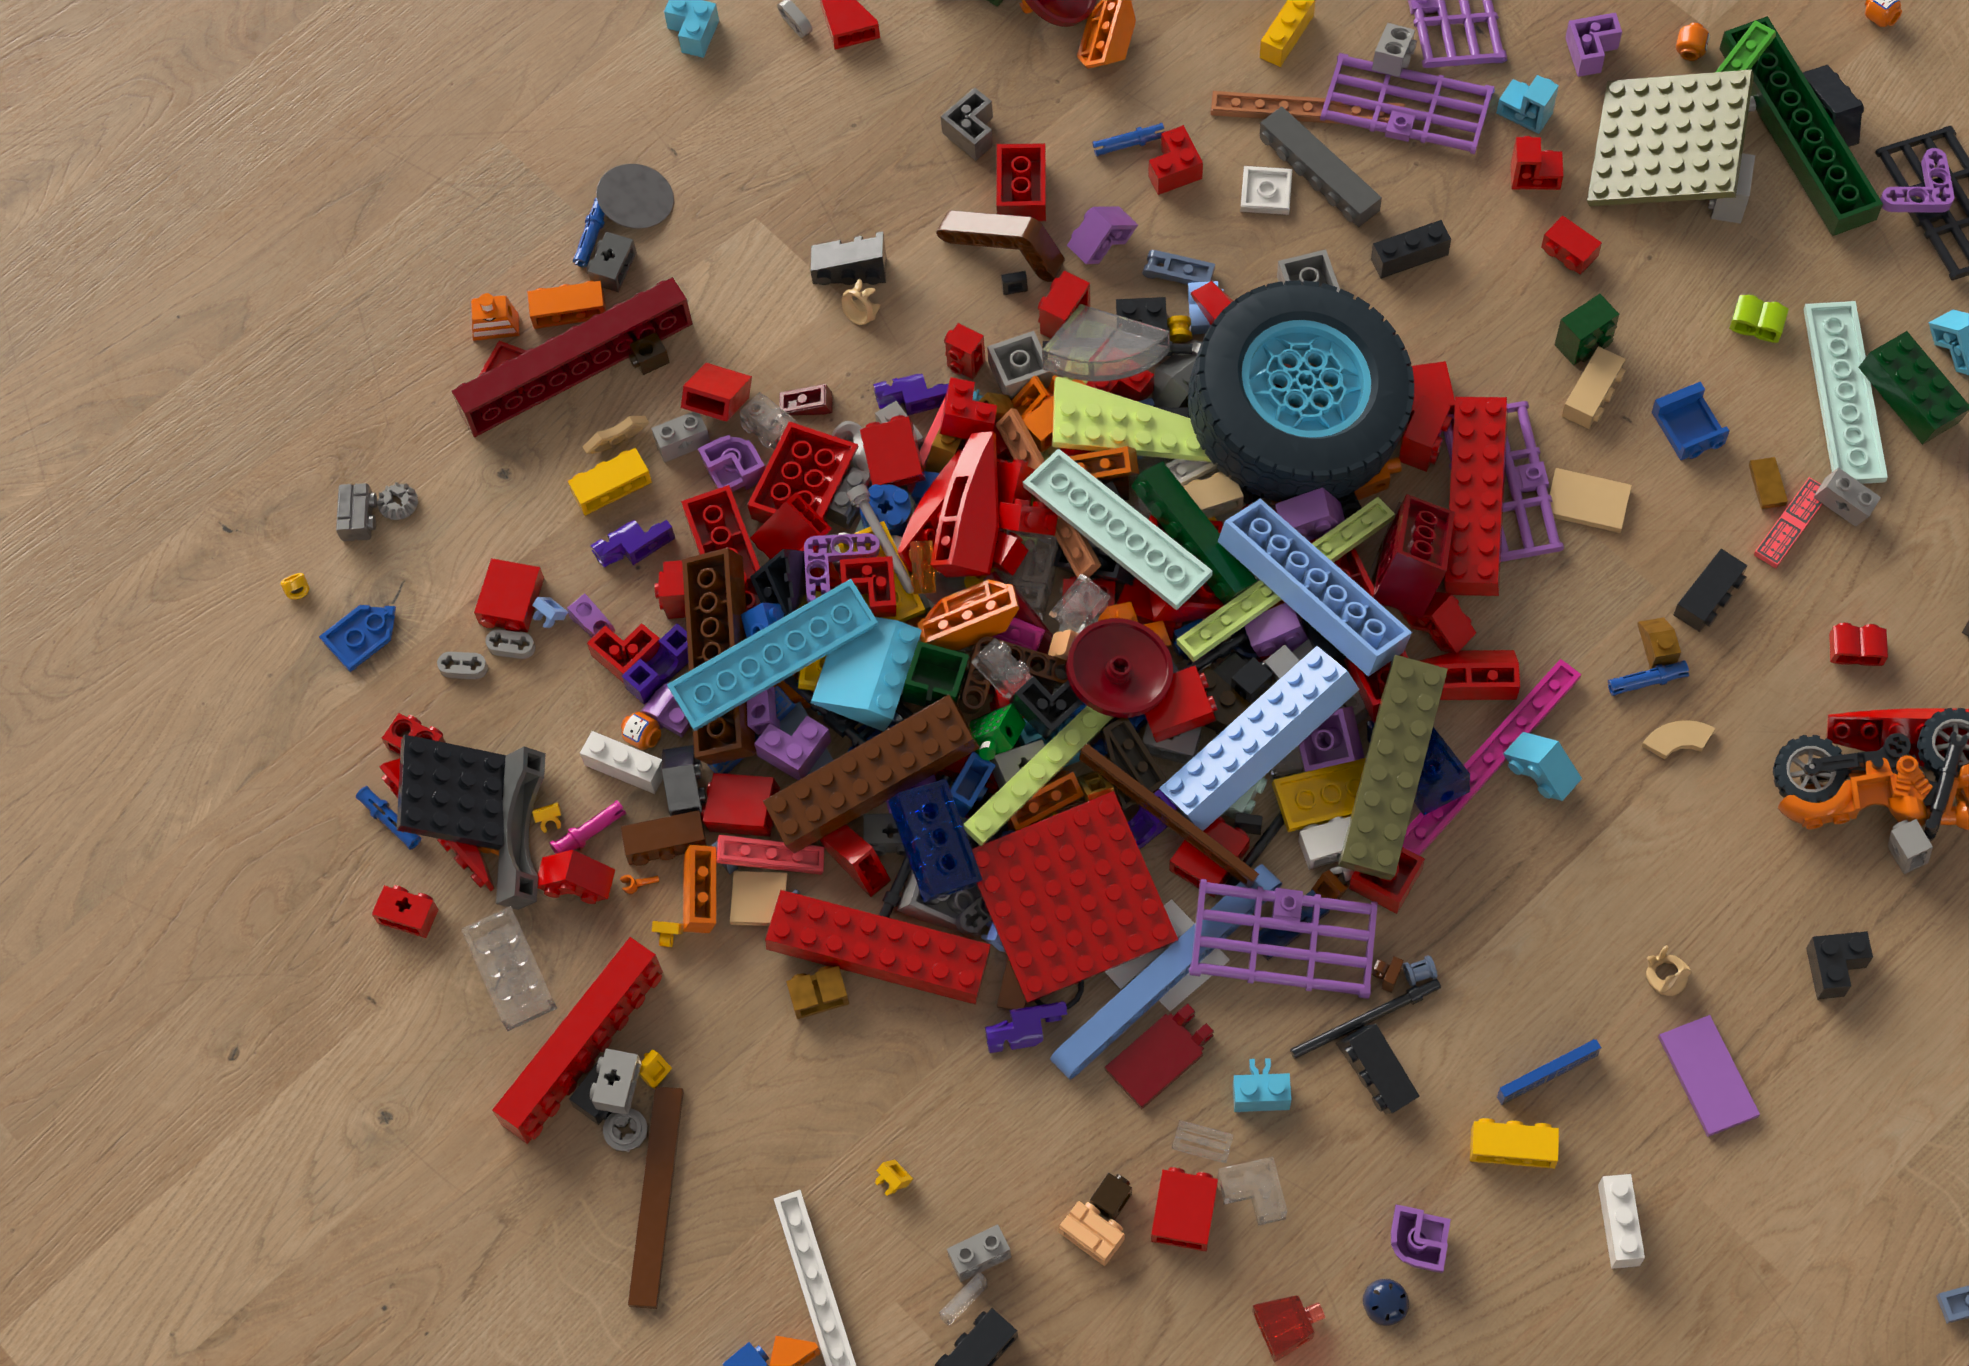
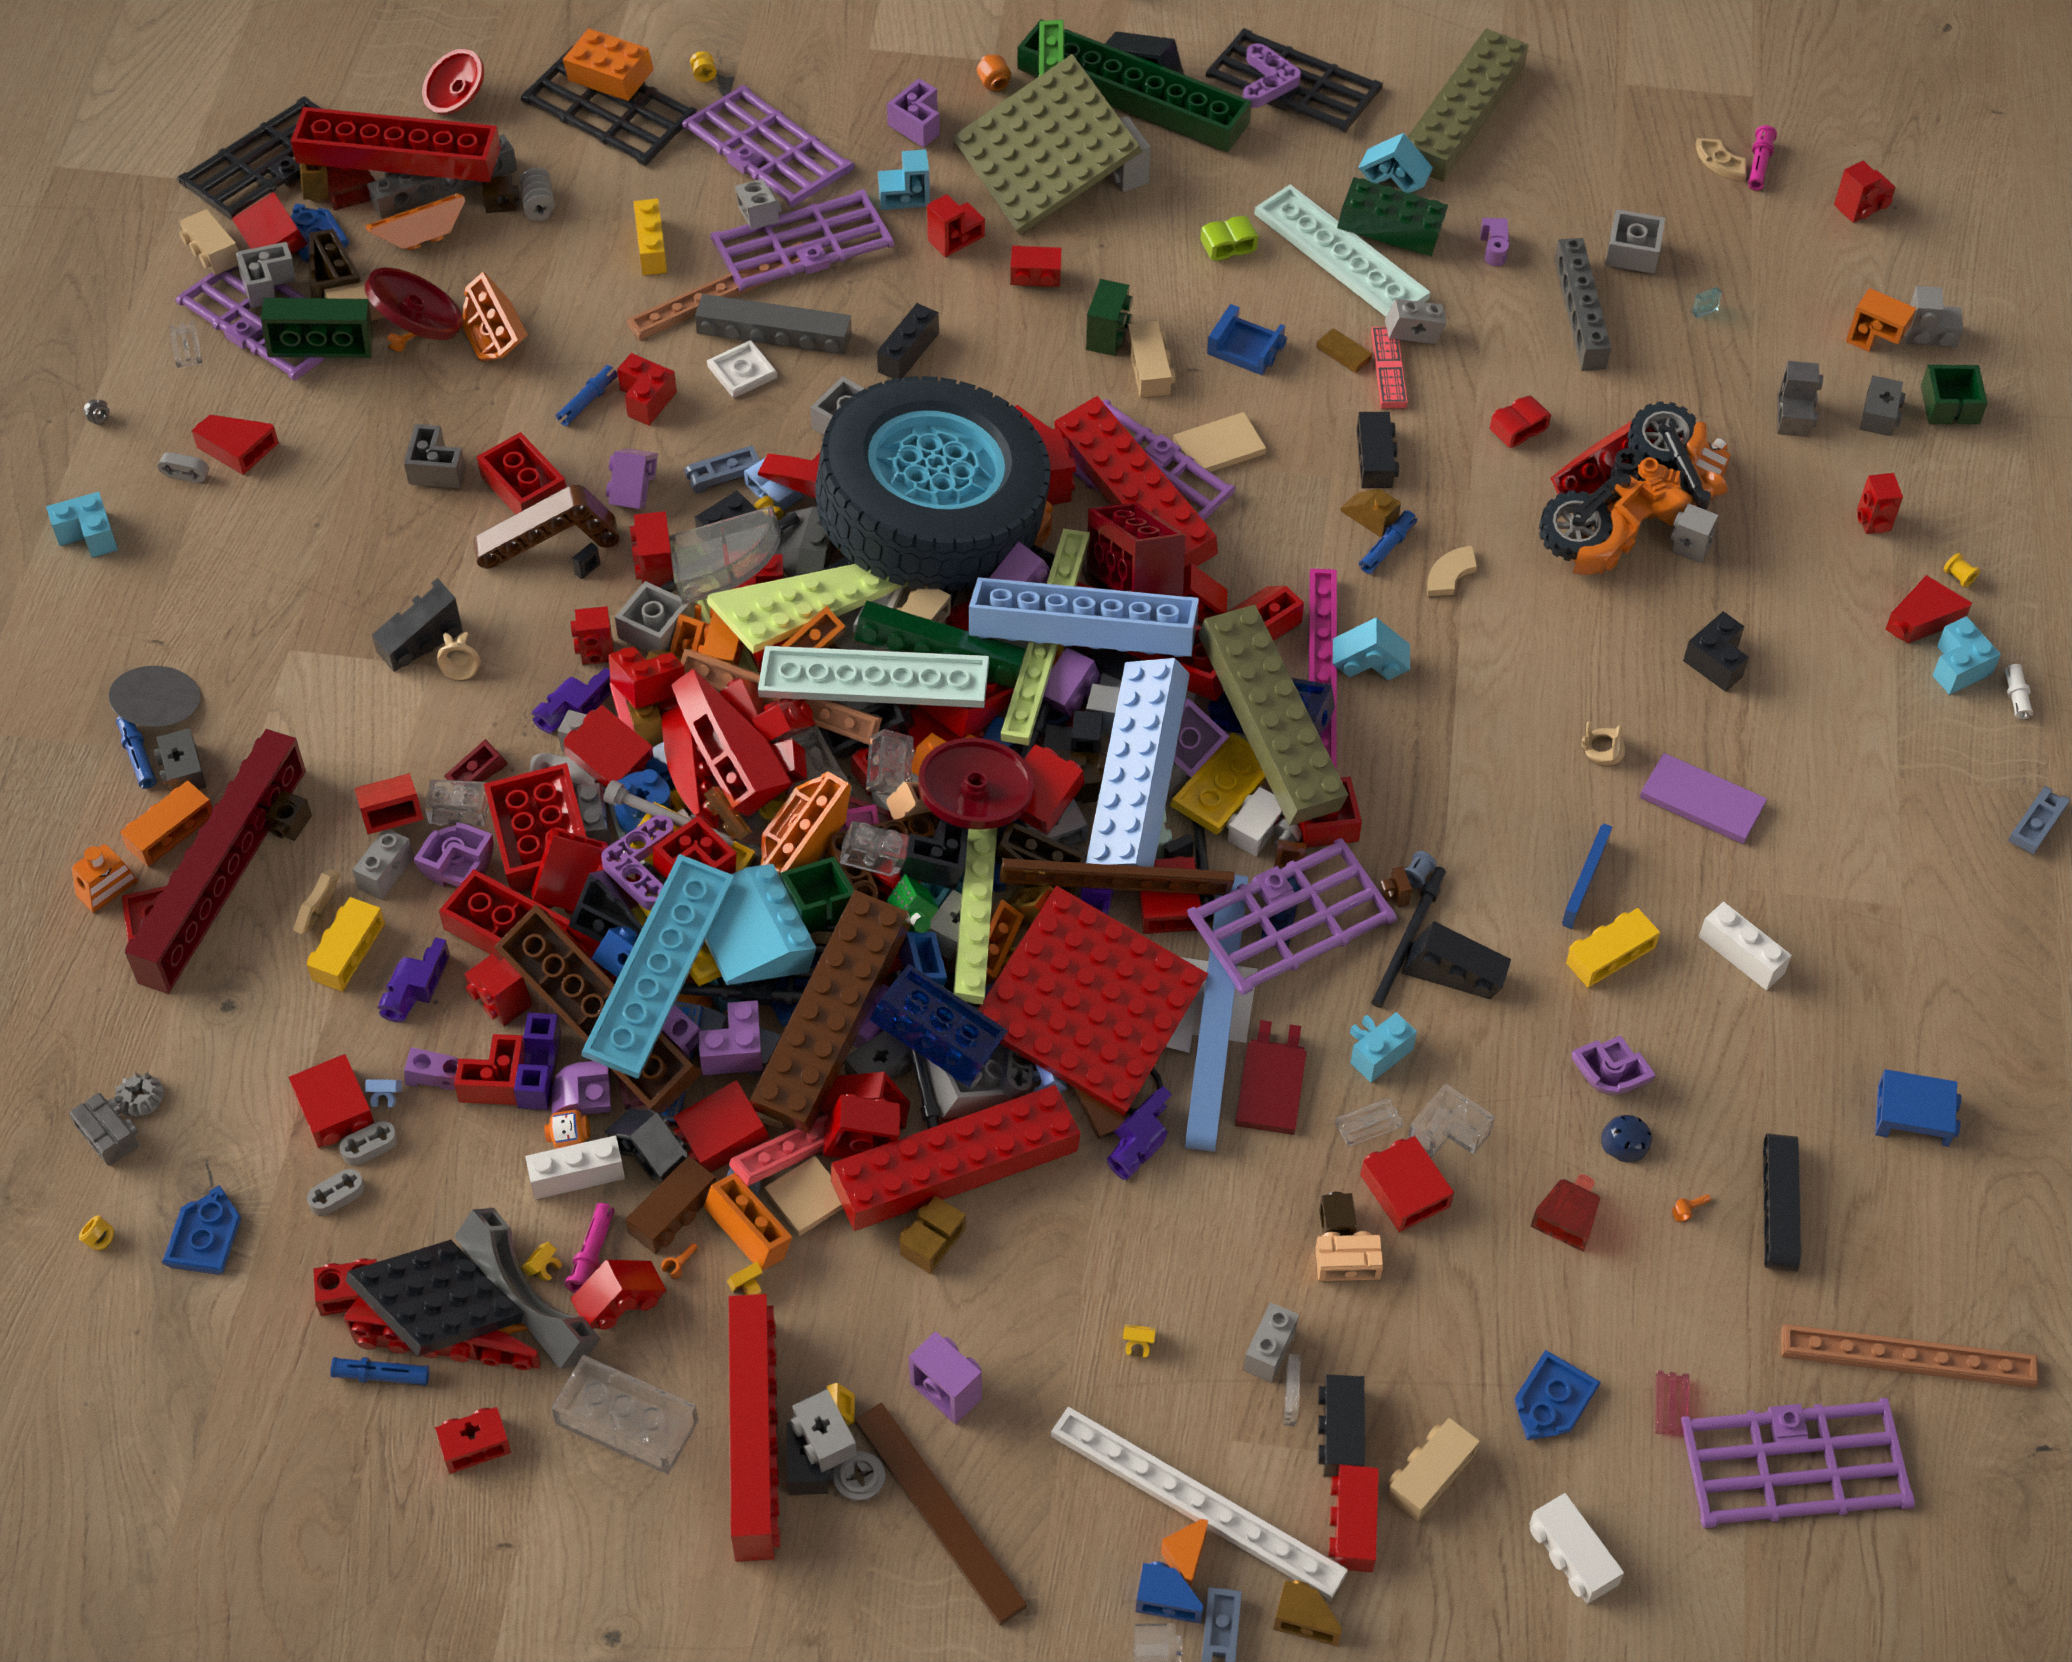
camera: 45 degrees left, 10 degrees down
(732, 1105) = (946, 1377): none -> medium lavender brick
(828, 876) = (860, 1125): none -> red brick

